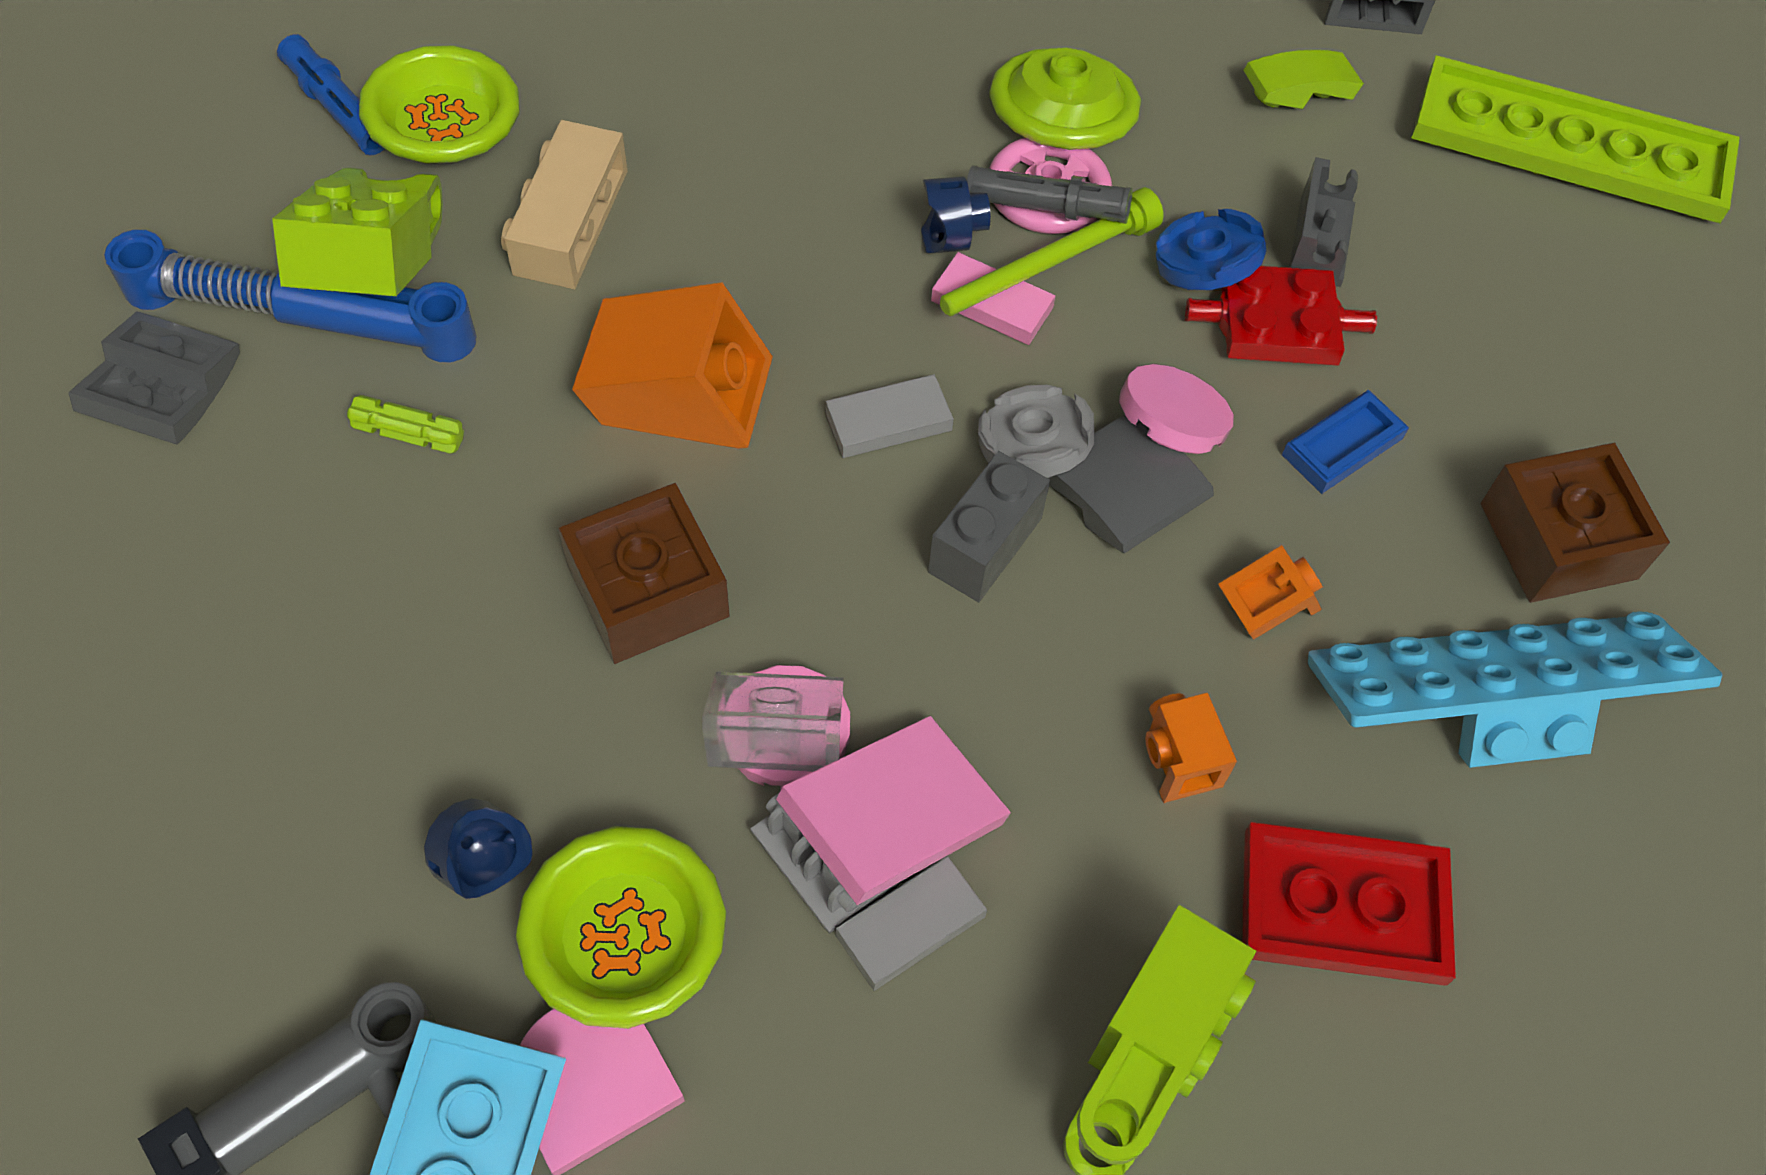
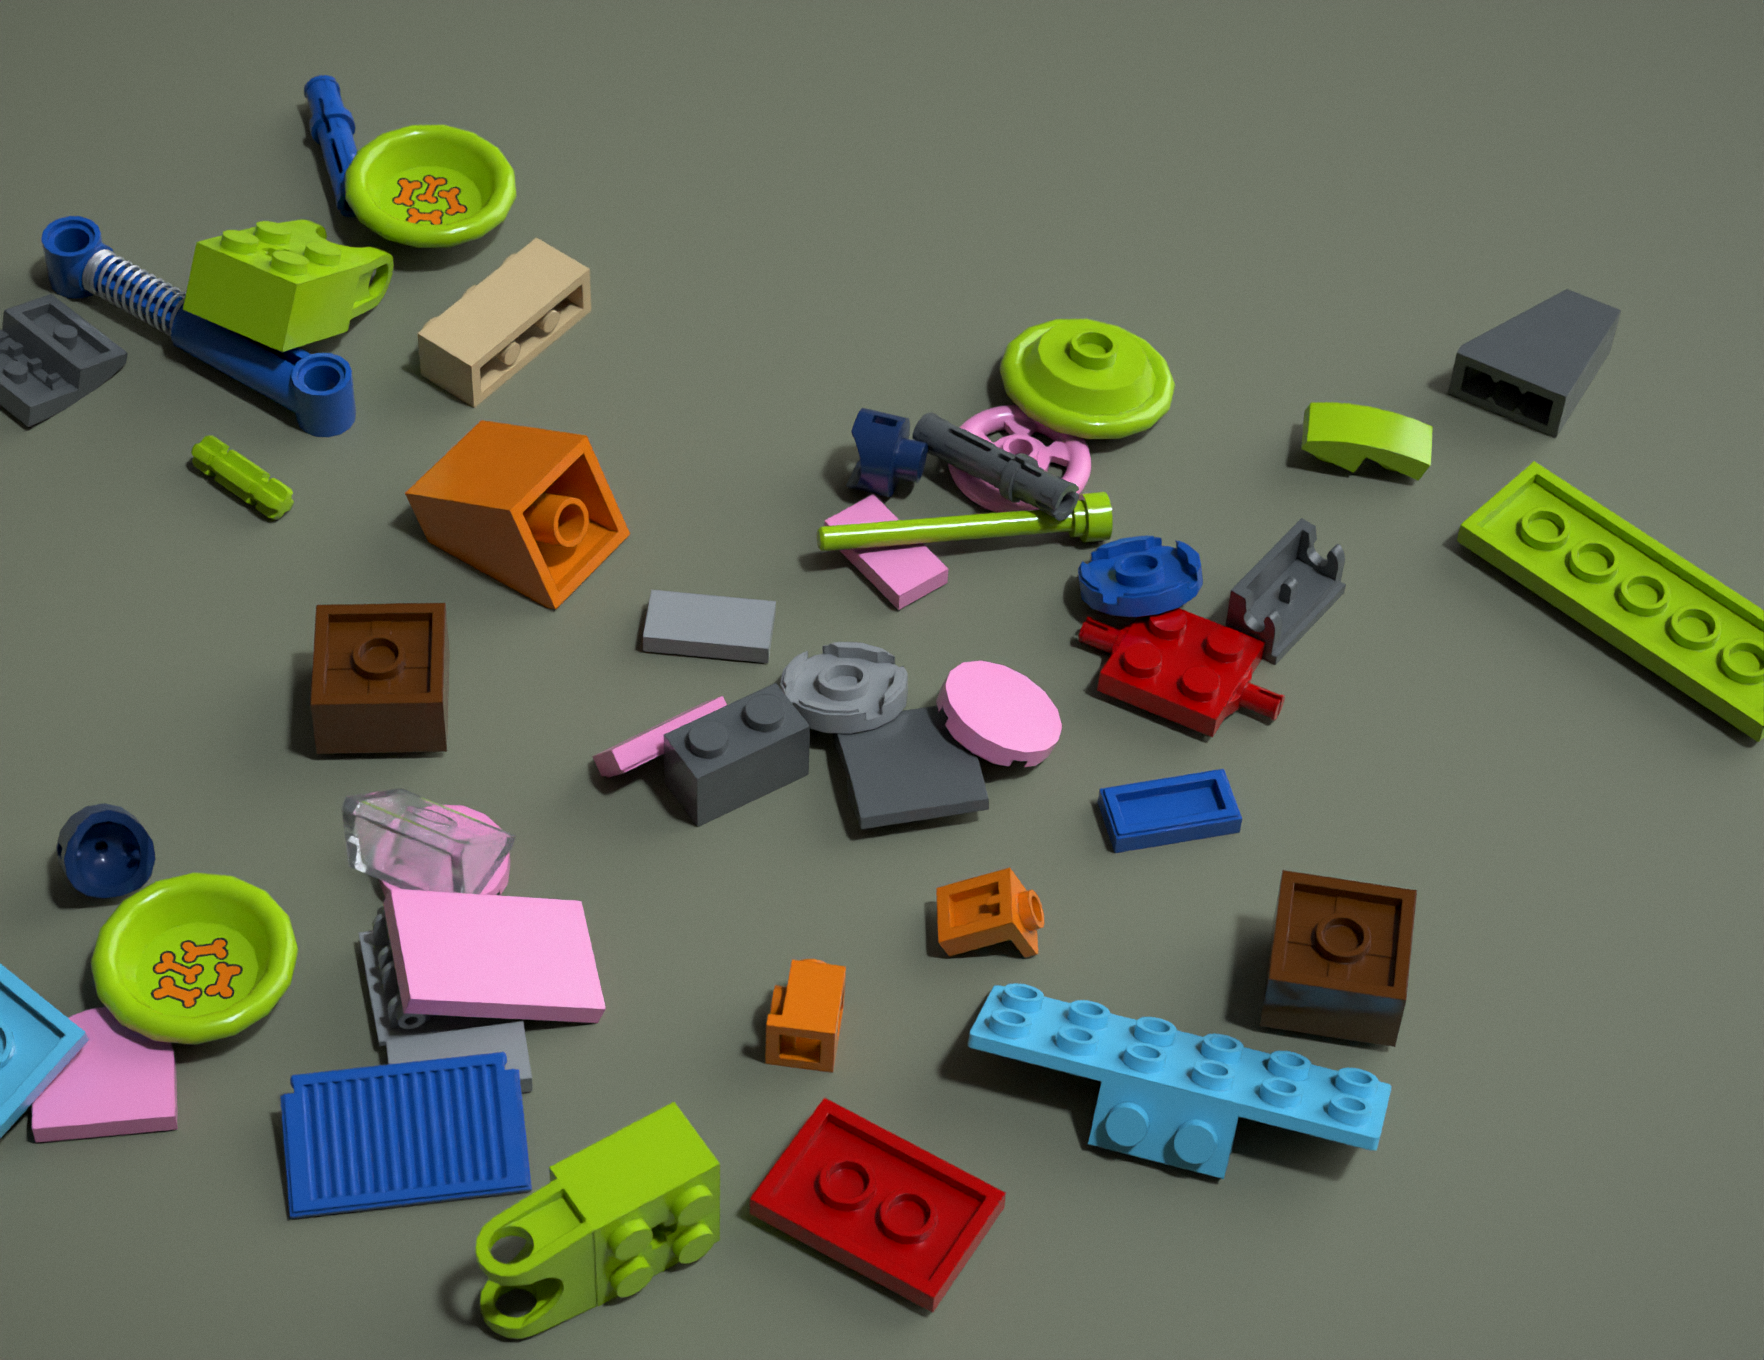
camera: 25 degrees right, 10 degrees down
(903, 1019) = (404, 1135): none -> blue window
(912, 535) = (650, 742): none -> bright pink tile

